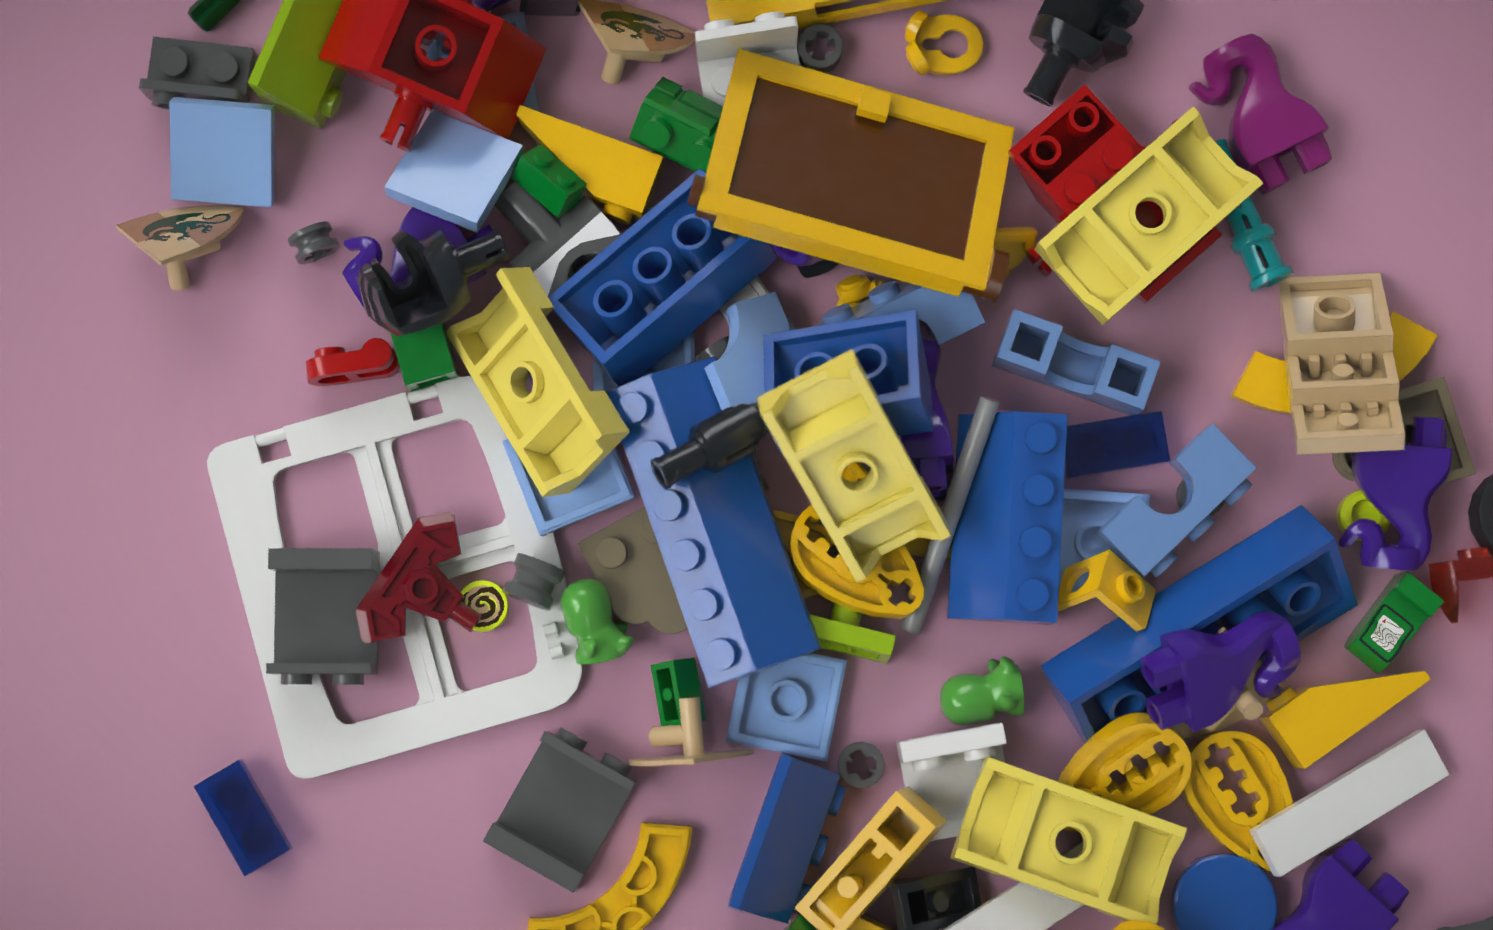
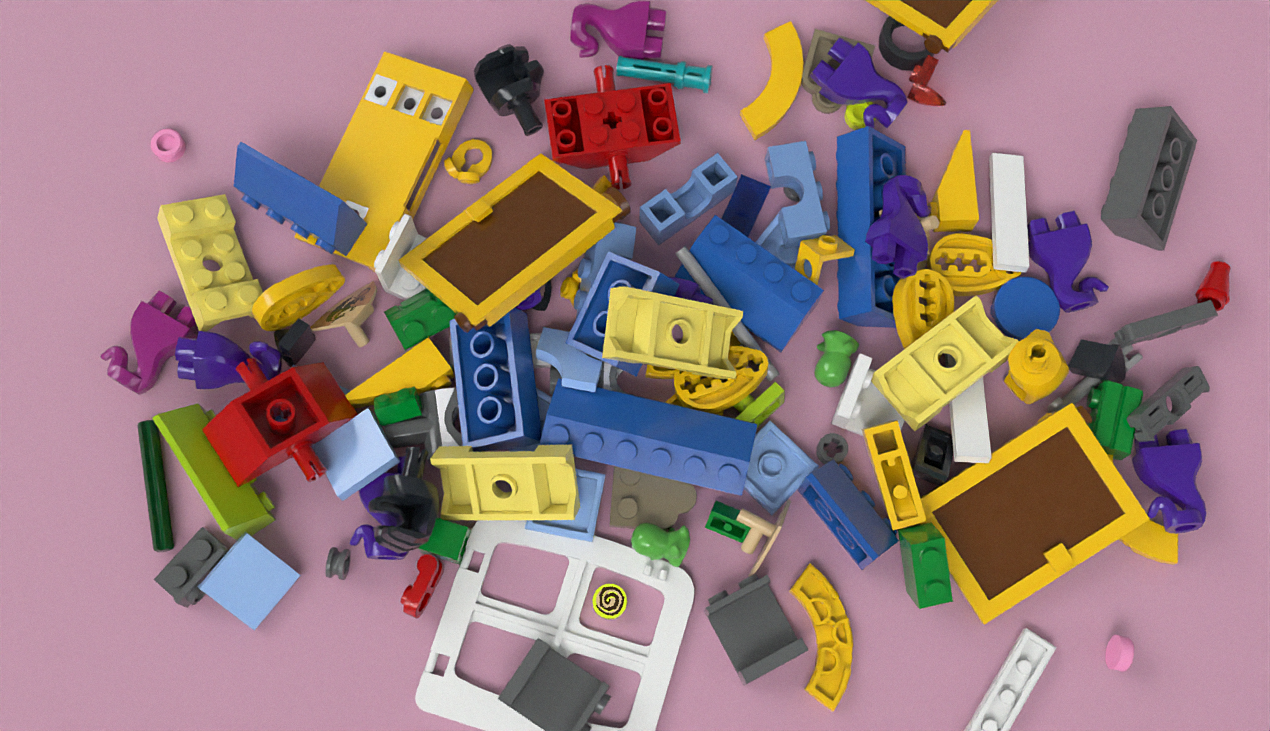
camera: 60 degrees left, 10 degrees down
(181, 235) = (280, 636): shield -> none
(416, 583) = (573, 628): dark red piece -> none
(533, 581) = (616, 560): dark grey wheel -> none
(712, 445) = (609, 404): black arm -> none
(808, 39) = (427, 213): dark grey bush -> none
(1104, 248) = (643, 140): light yellow piece -> none
(1340, 364) = (777, 70): tan slope -> none
(1392, 621) = (925, 132): green leg -> none

